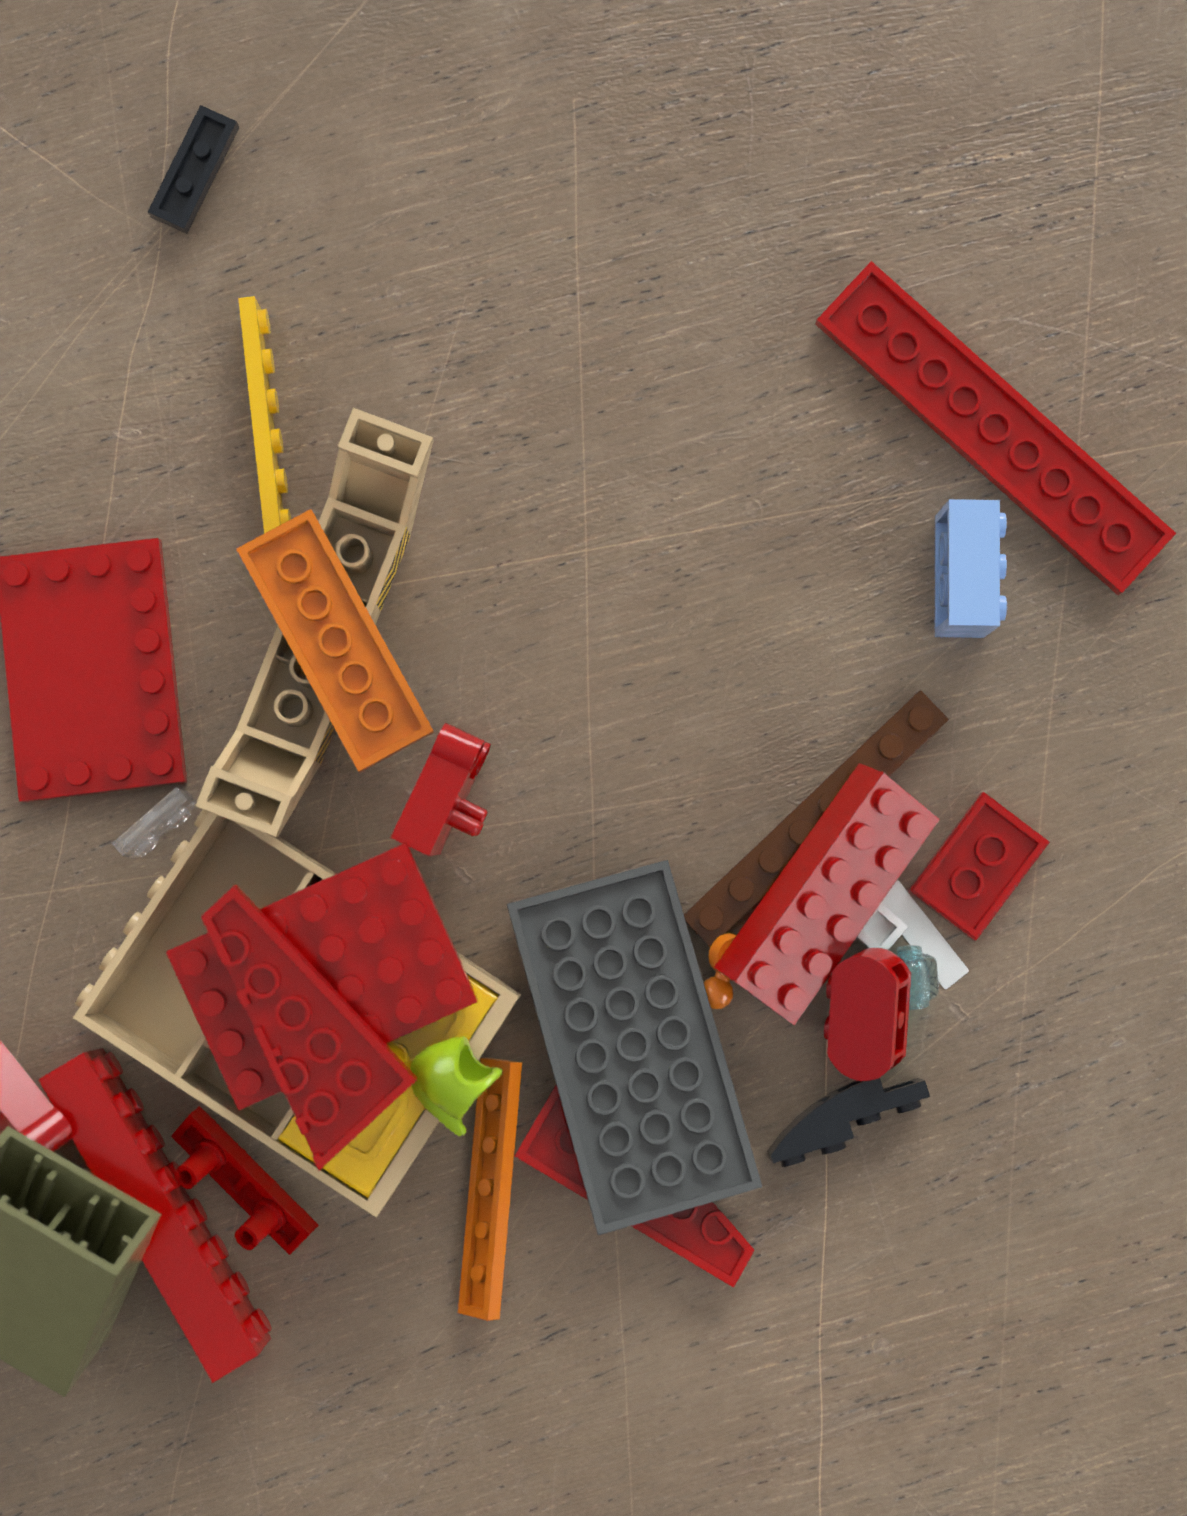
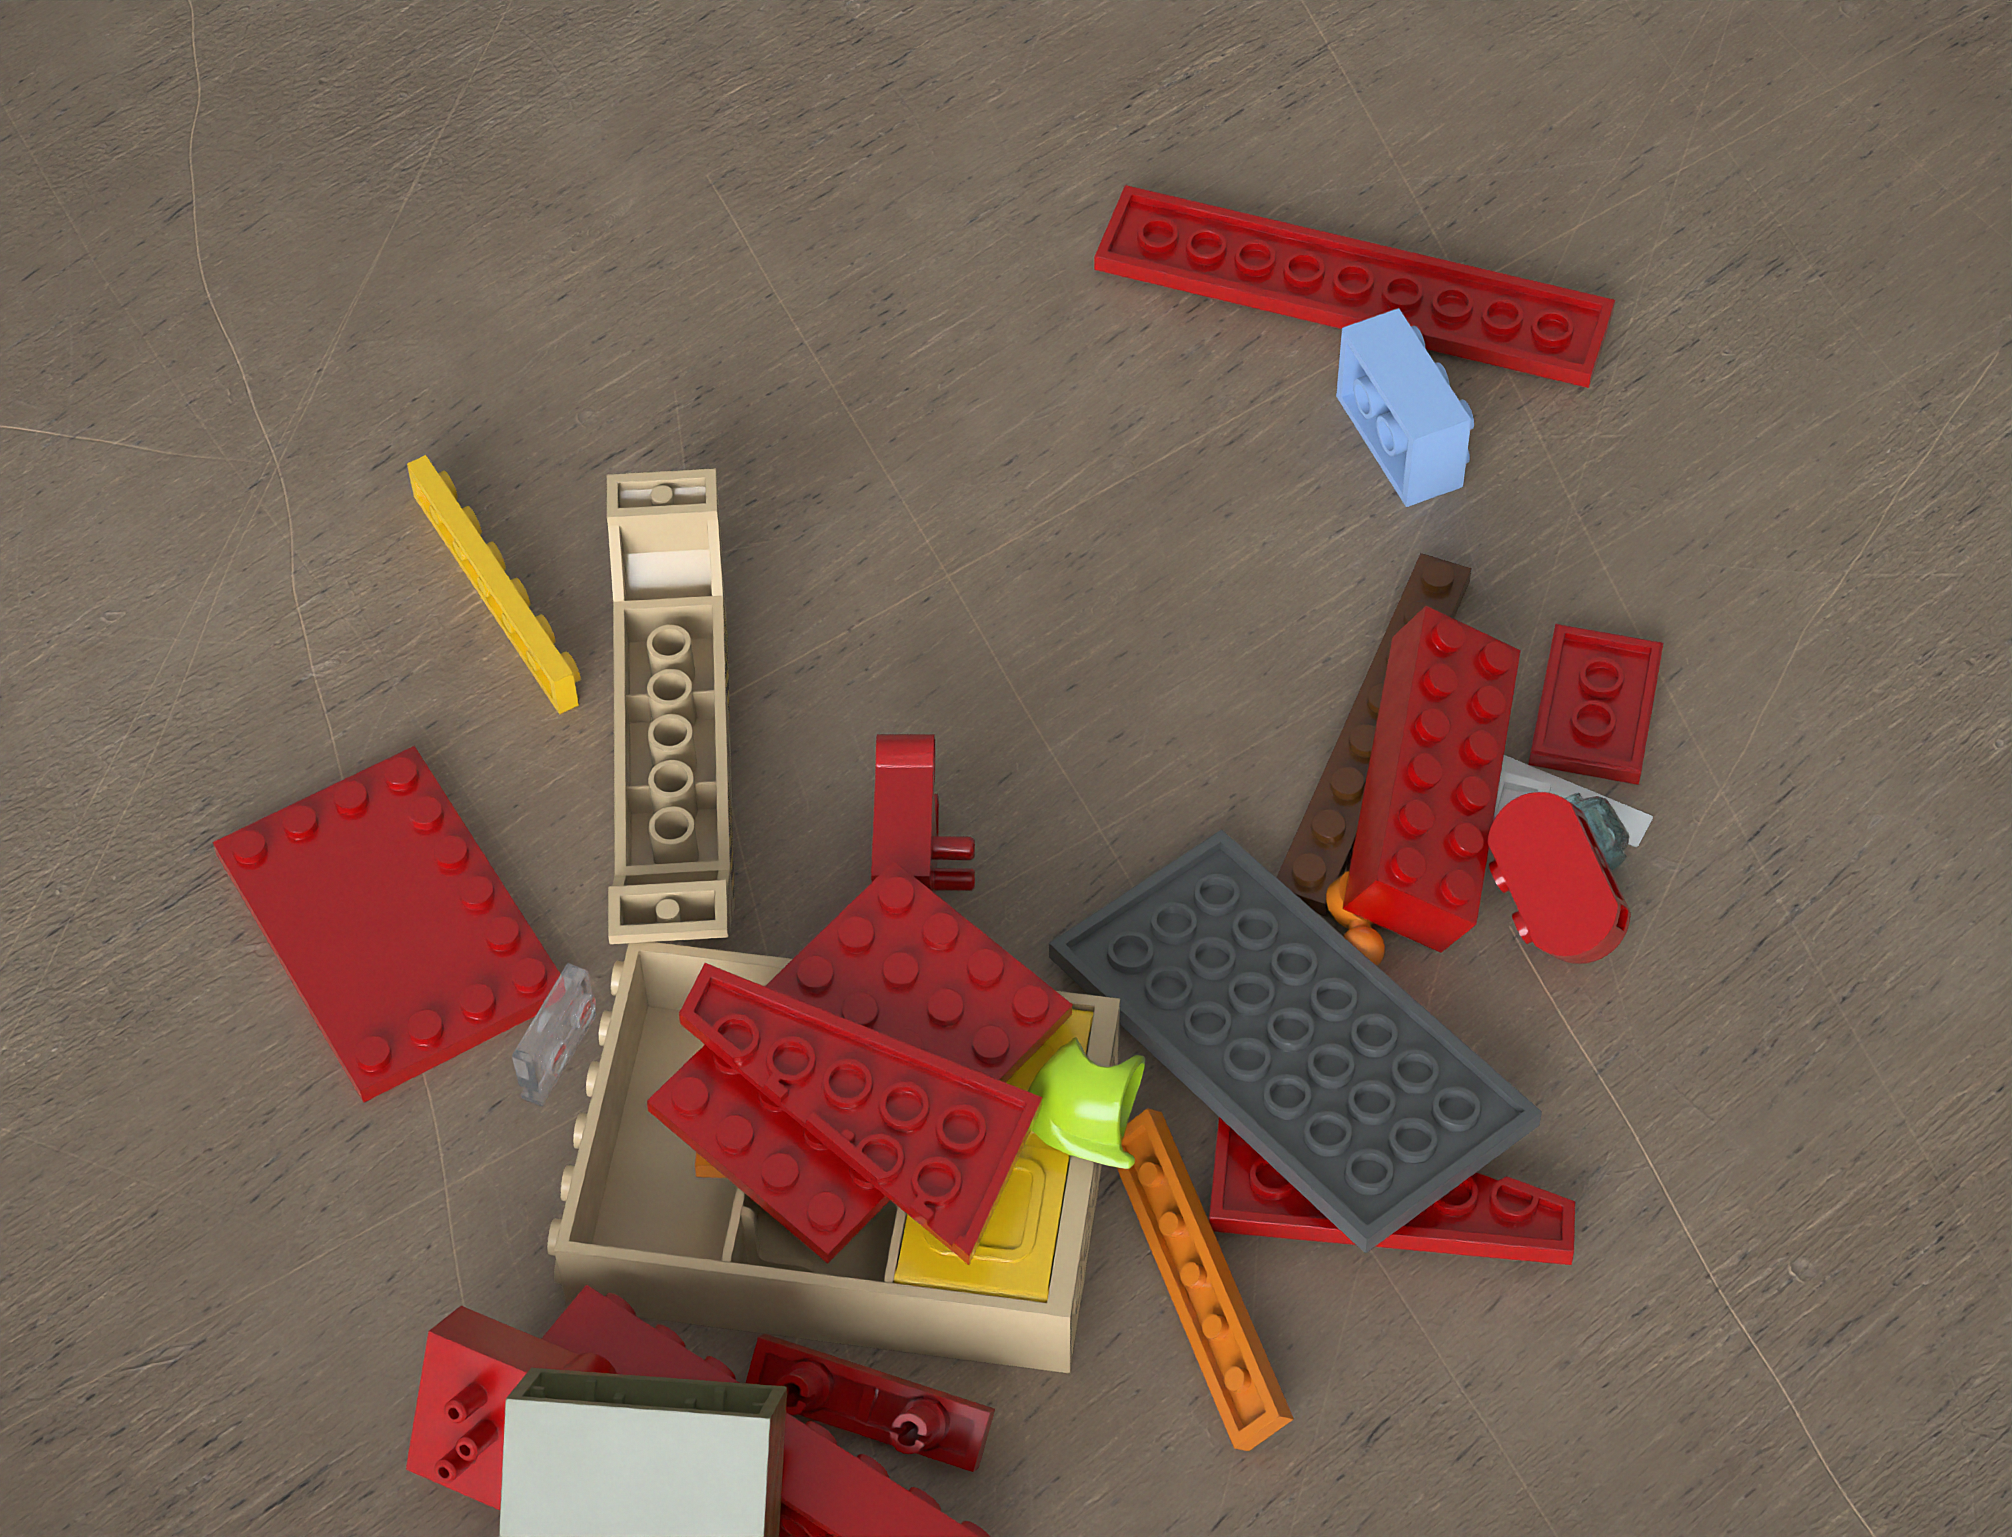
camera: 20 degrees left, 30 degrees down
(193, 169) = (290, 380): black plate -> none
(335, 640) = (698, 727): orange plate -> none
(827, 1121) = (1591, 1009): black slope -> none

